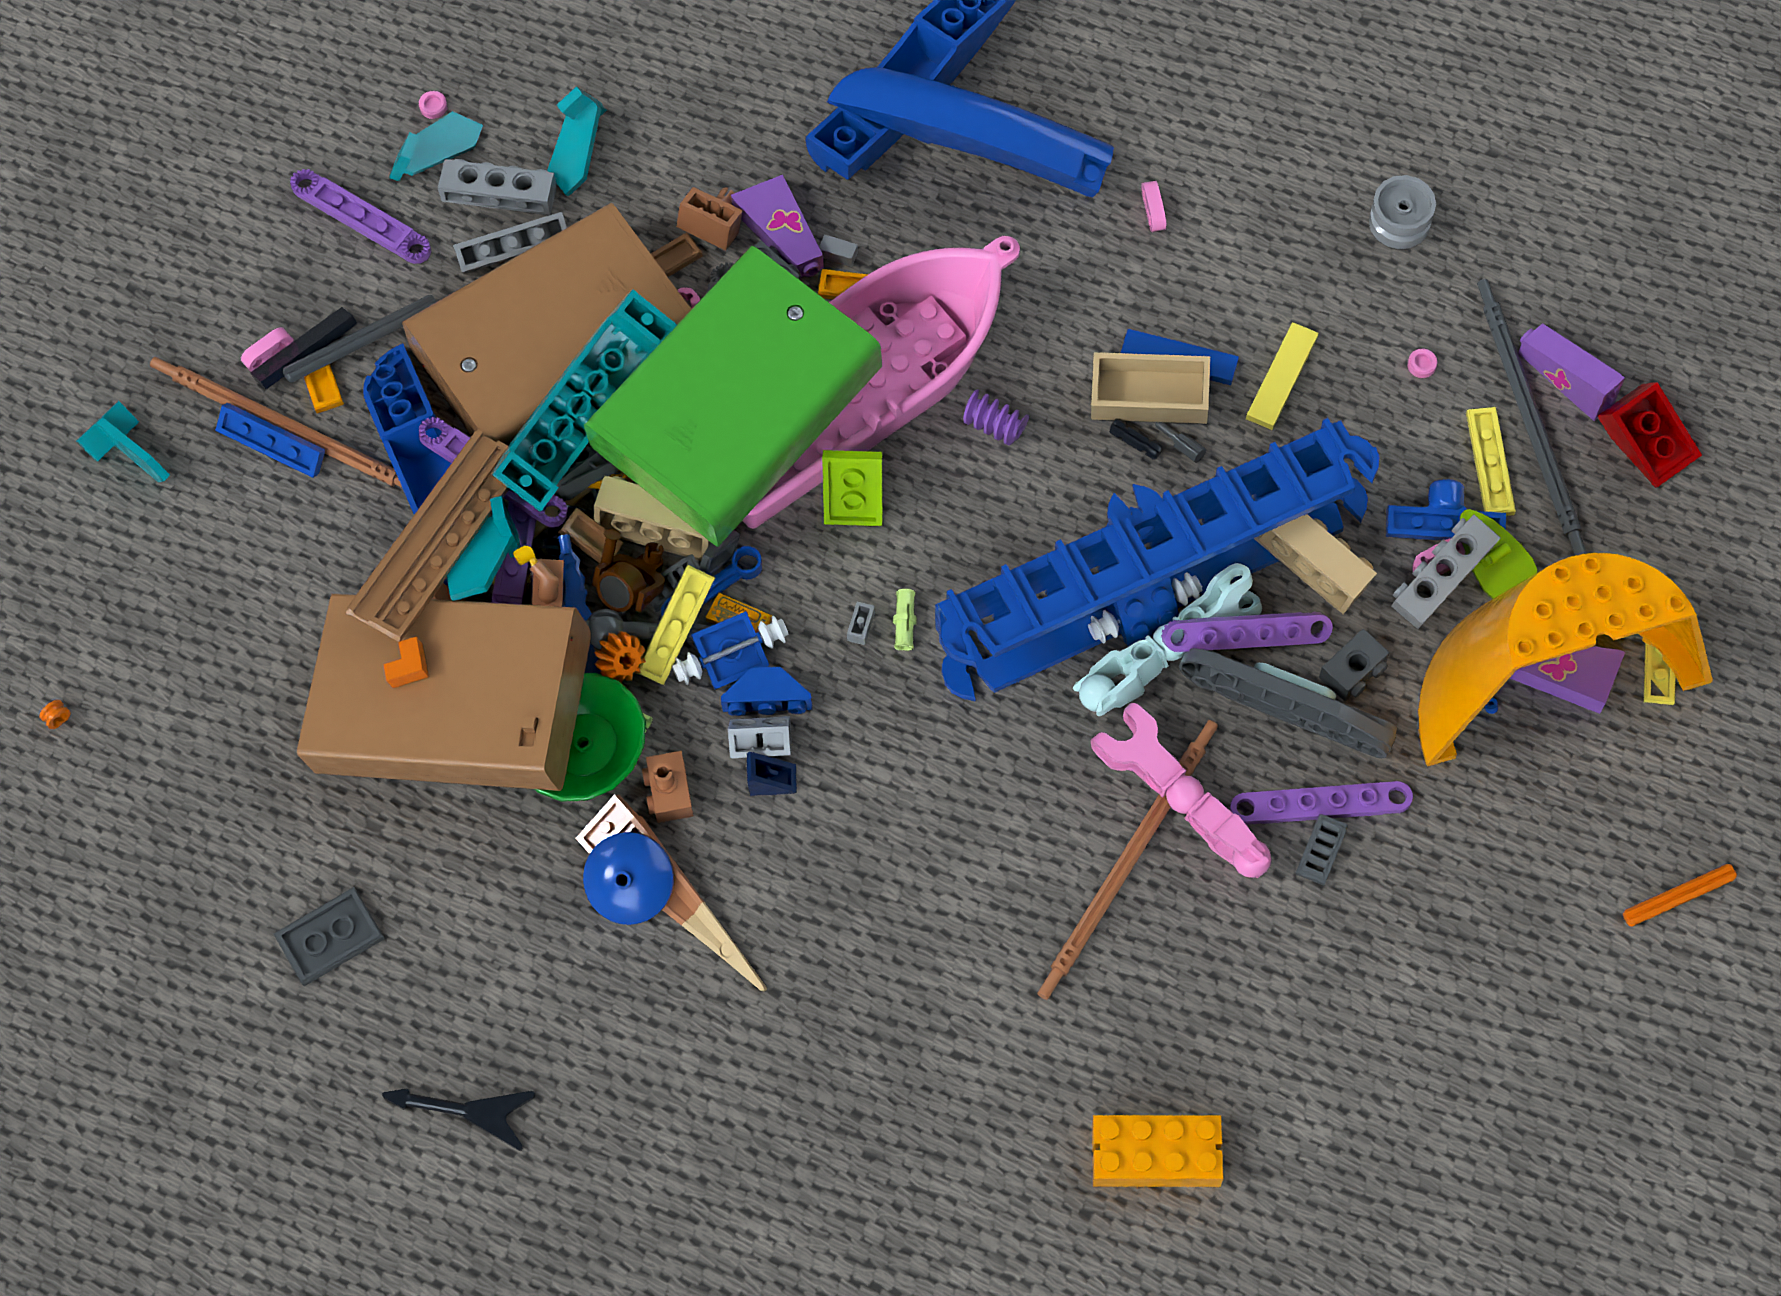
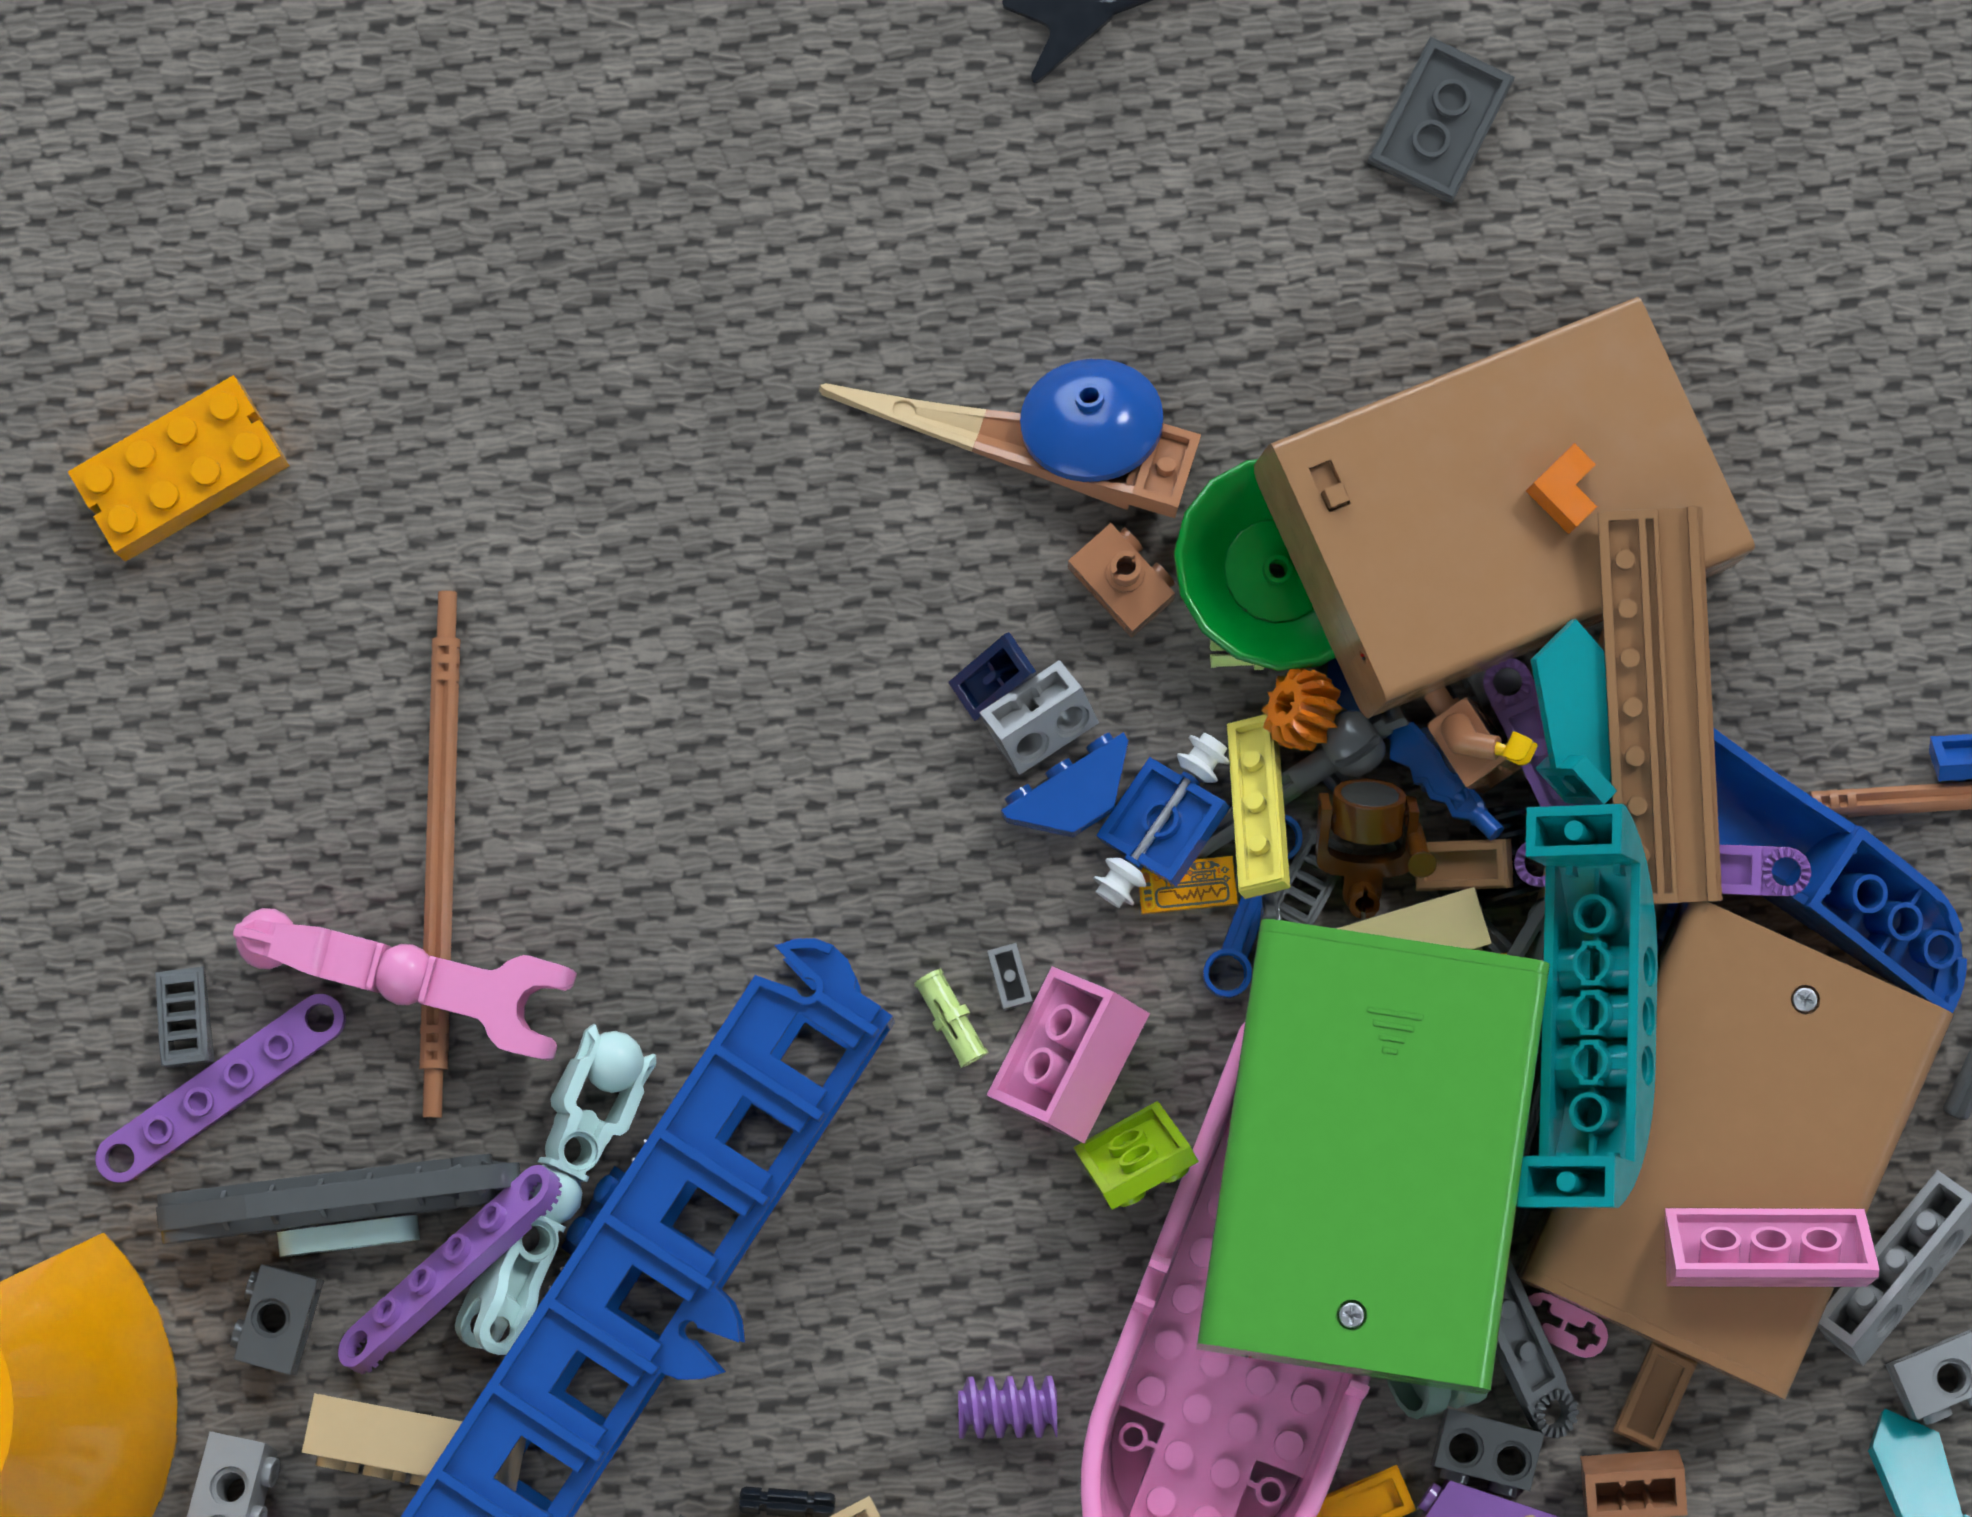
camera: 150 degrees right, 15 degrees up
(570, 260) = (1769, 1248): none -> bright pink slope
(856, 567) = (1068, 1054): none -> bright pink slope

